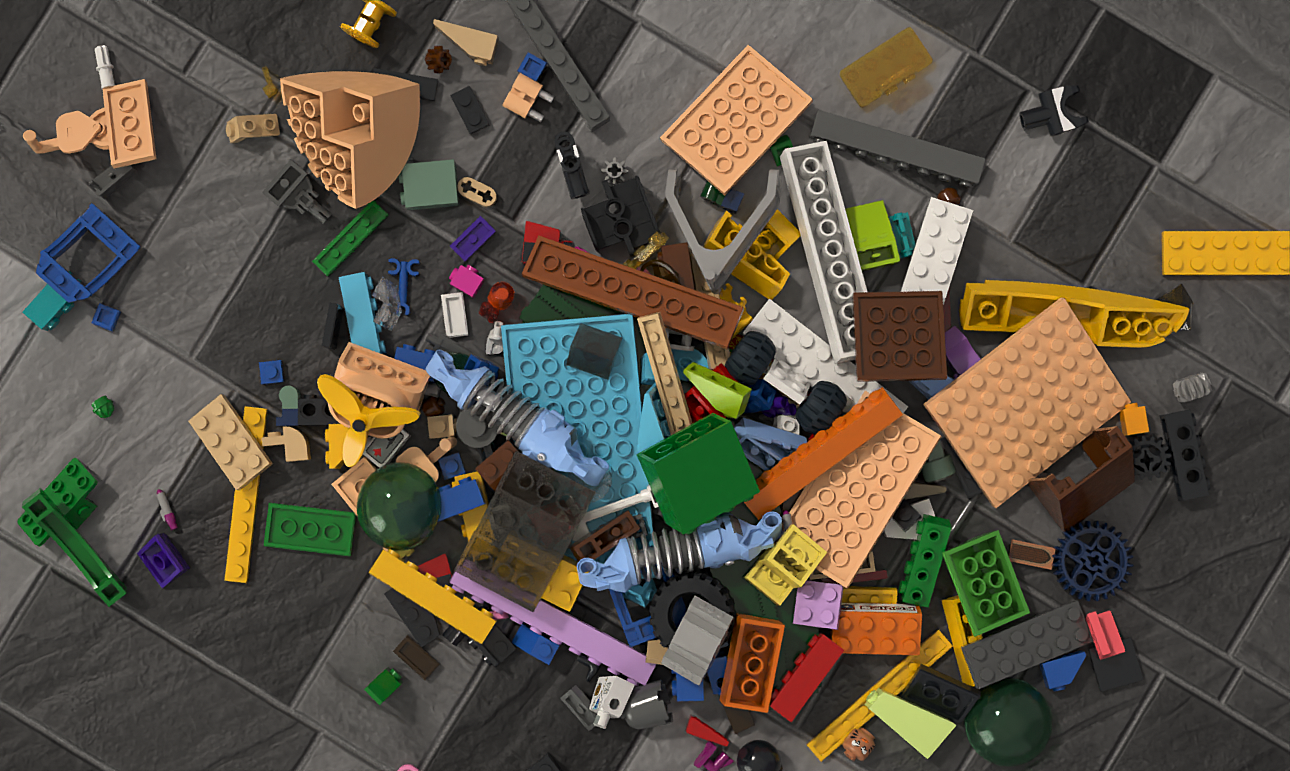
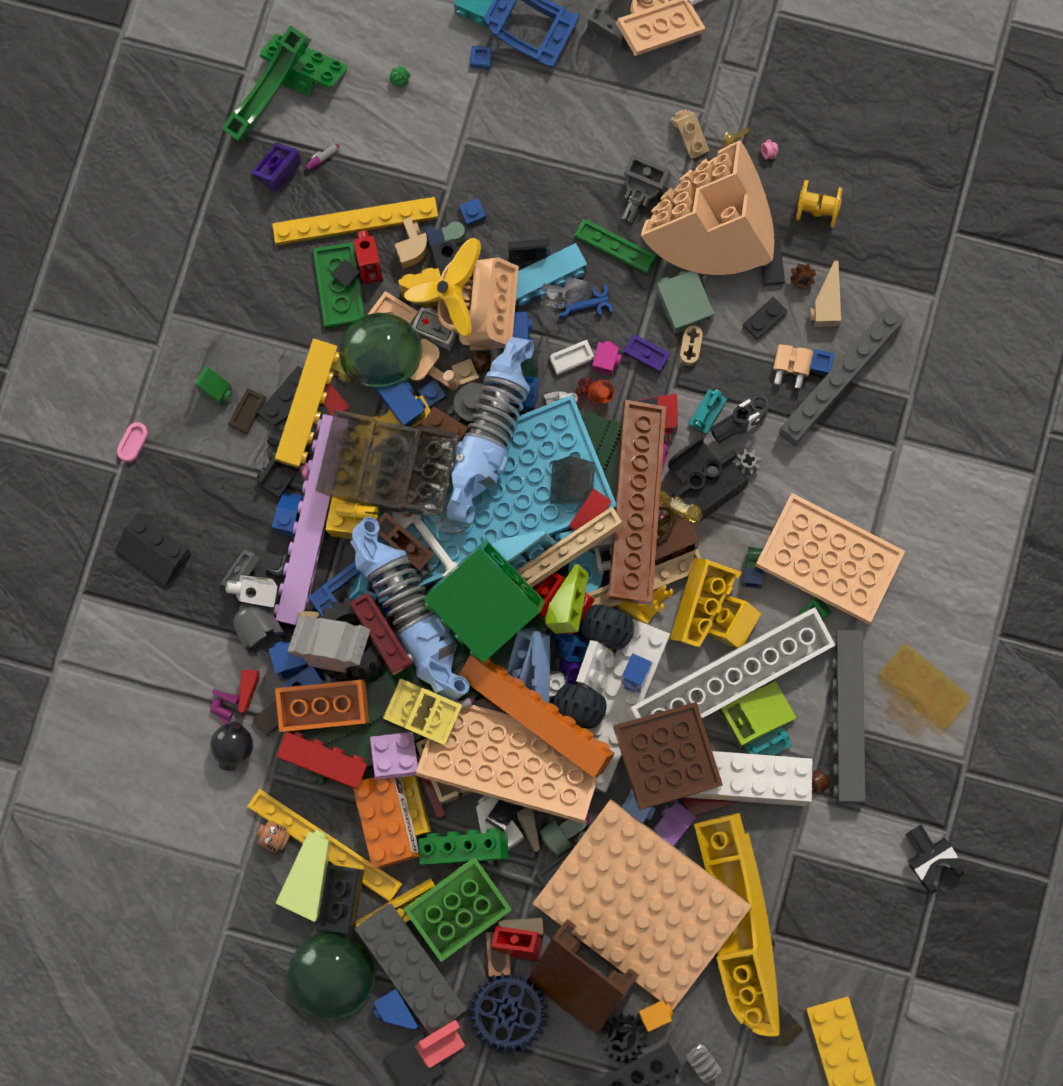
camera: 80 degrees right, 10 degrees down
(230, 442) = (398, 192): tan plate -> none
(290, 492) = (367, 258): none -> red torso
(294, 53) = (769, 149): none -> bright pink plate
(301, 519) = (345, 273): none -> black tile
(549, 195) = (708, 410): none -> teal hinge
(563, 575) = (356, 511): none -> yellow axle
(632, 342) = (593, 506): none -> red slope
(699, 585) = (380, 633): none -> dark red tile
(720, 263) = (686, 572): light grey piece -> none
(806, 343) = (636, 673): none -> blue brick
(1013, 521) = (532, 924): none -> dark tan slope
(1029, 533) = (518, 943): none -> red slope

